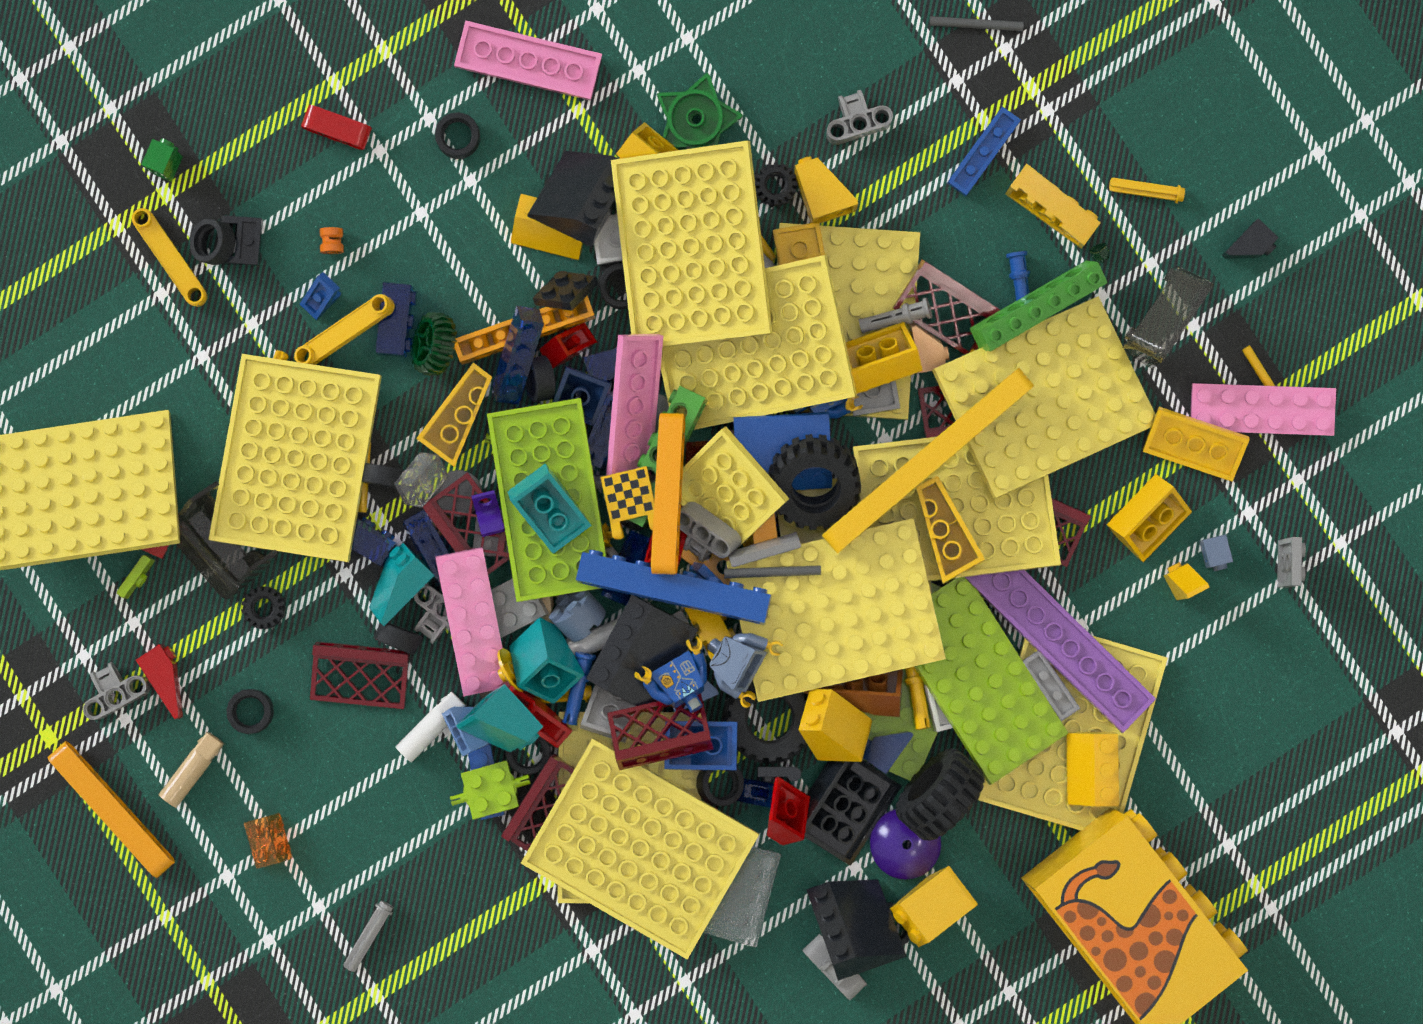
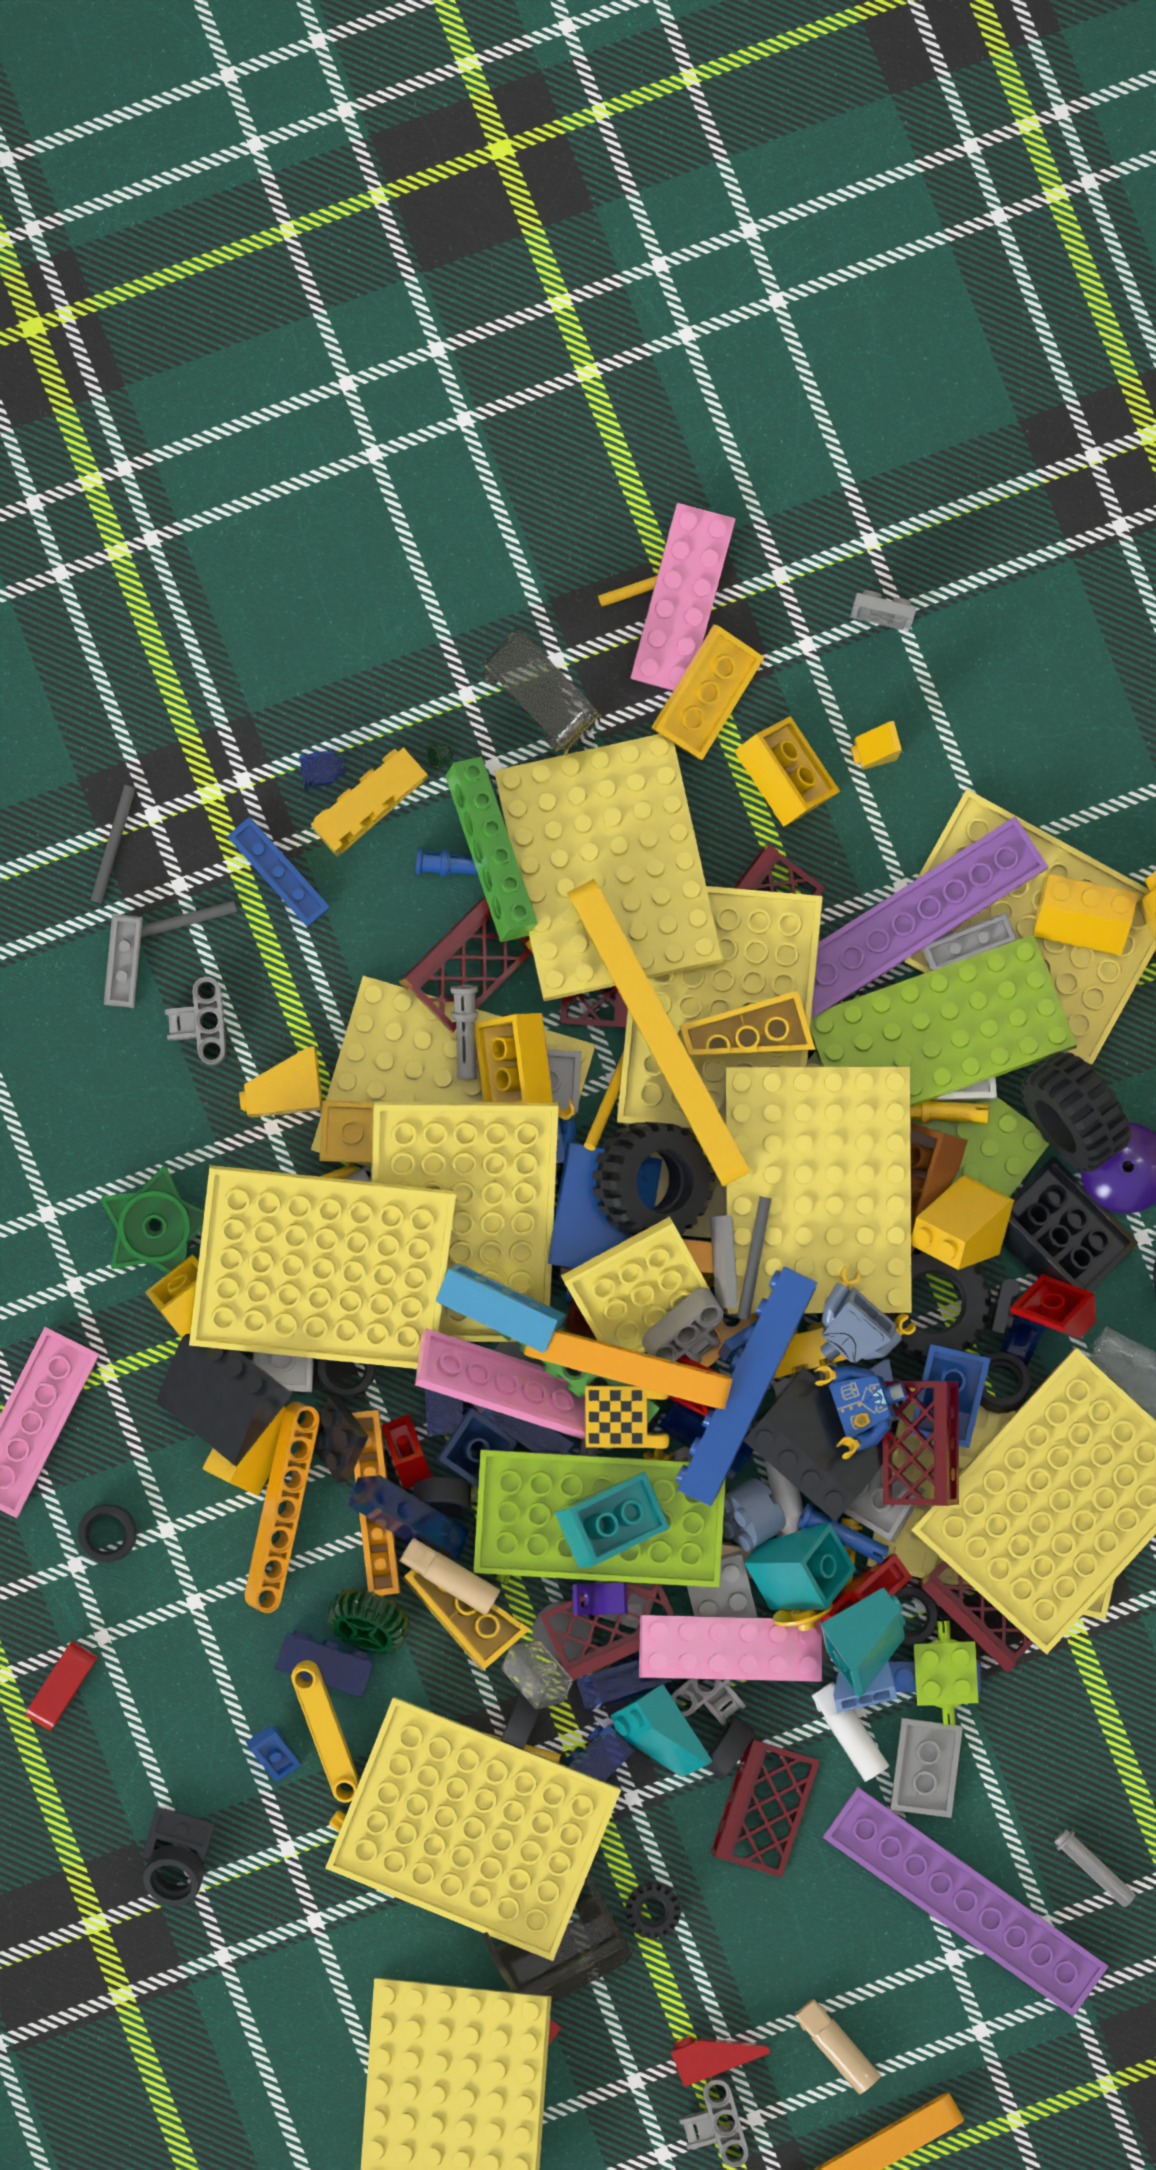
camera: 75 degrees left, 0 degrees up
(136, 577) = (579, 2064): lime plate -> none
(162, 159) = (54, 1916): green brick -> none
(169, 257) = (179, 1935): yellow piece -> none
(232, 715) = (803, 1957): black tyre -> none
(268, 840) = (947, 1968): clear orange bracket -> none
(321, 843) = (965, 1901): none -> medium lavender plate
(331, 240) = (212, 1725): orange wheel -> none
(415, 791) = (926, 1767): none -> light grey plate
(480, 396) = (450, 1576): none -> tan piece
(496, 267) = (276, 1493): none -> light orange beam
(691, 386) = (499, 1307): none -> dark azure panel
(772, 171) = (248, 1130): black tyre -> none
(859, 435) = (605, 1108): none -> yellow bar
(885, 749) = (1004, 1166): dark blue slope -> none
(890, 50) = (123, 960): none -> light grey tile
(928, 84) = (188, 918): none -> dark grey bar
(929, 347) = (513, 997): light nougat slope -> none
(1069, 165) = (321, 768): none -> clear blue window
(1147, 189) = (373, 678): yellow axle -> none
(1216, 552) = (848, 698): sand blue brick -> none
(1253, 242) = (470, 562): black slope -> none

